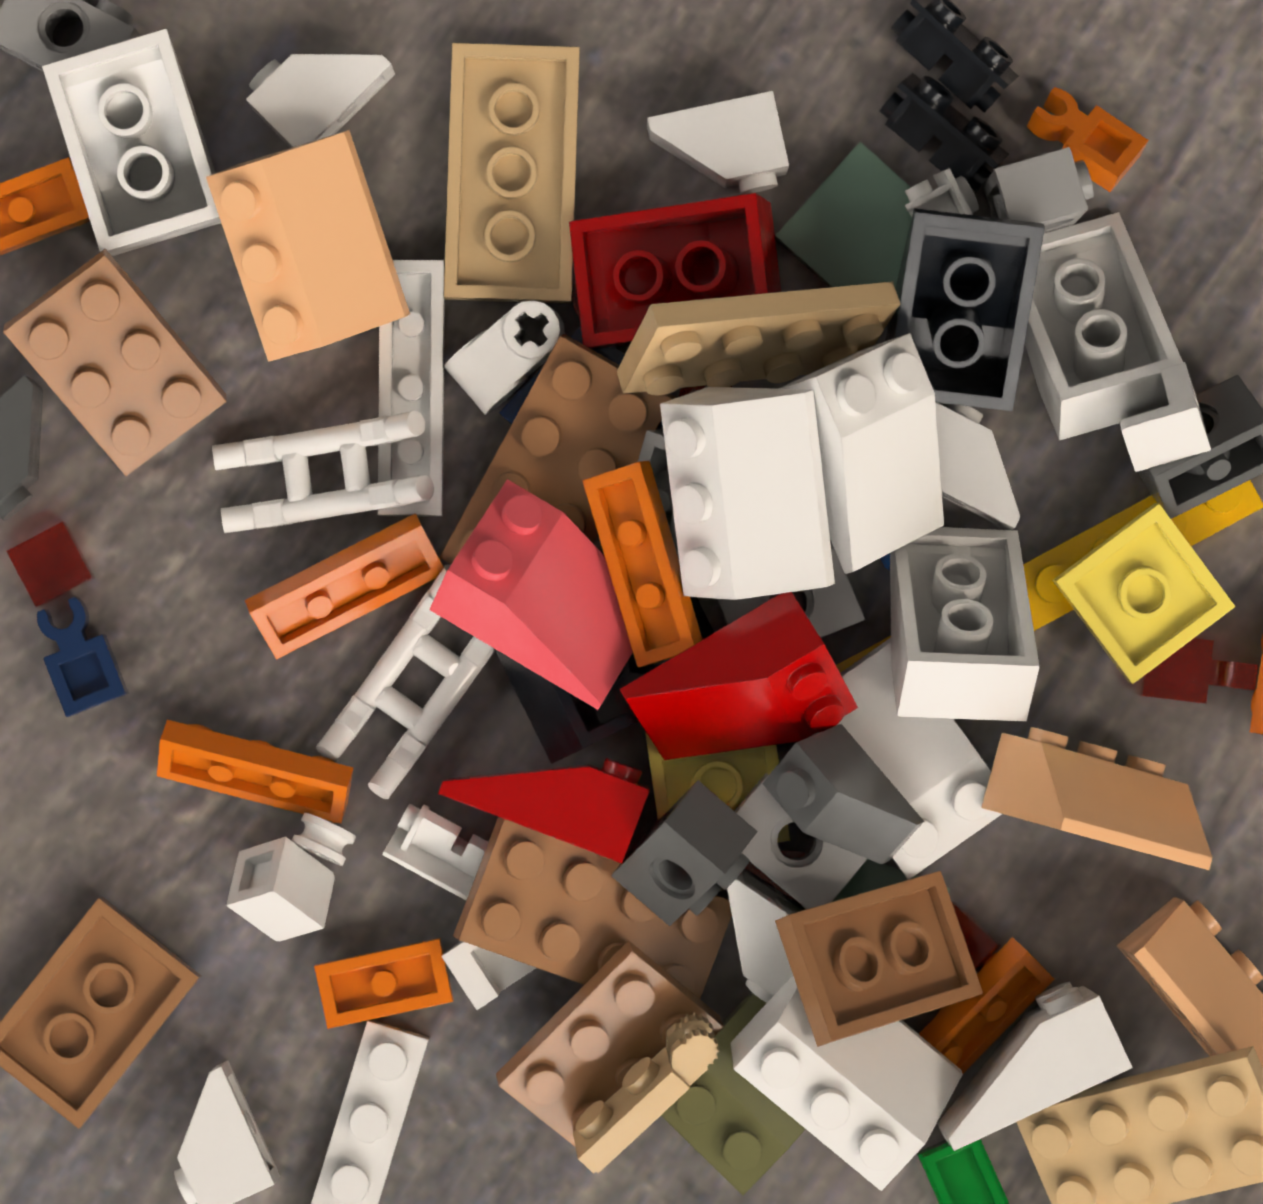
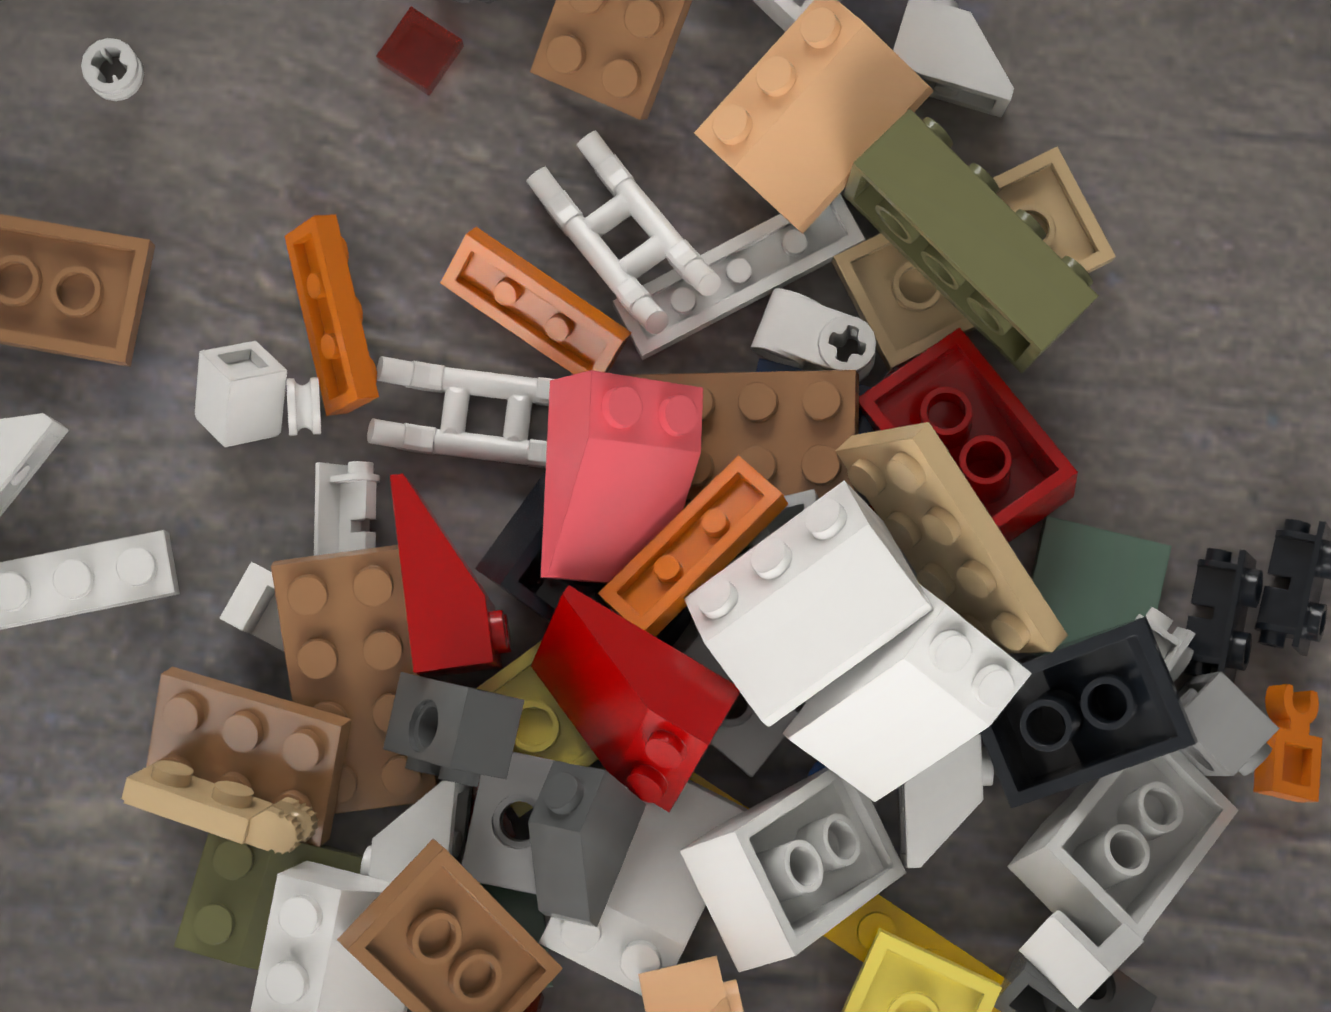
camera: 65 degrees right, 5 degrees down
(83, 669) = (343, 123): dark blue plate -> none
(384, 983) = (204, 526): orange plate -> none
(503, 173) = (968, 239): none -> olive brick
(727, 141) = (1106, 427): white slope -> none

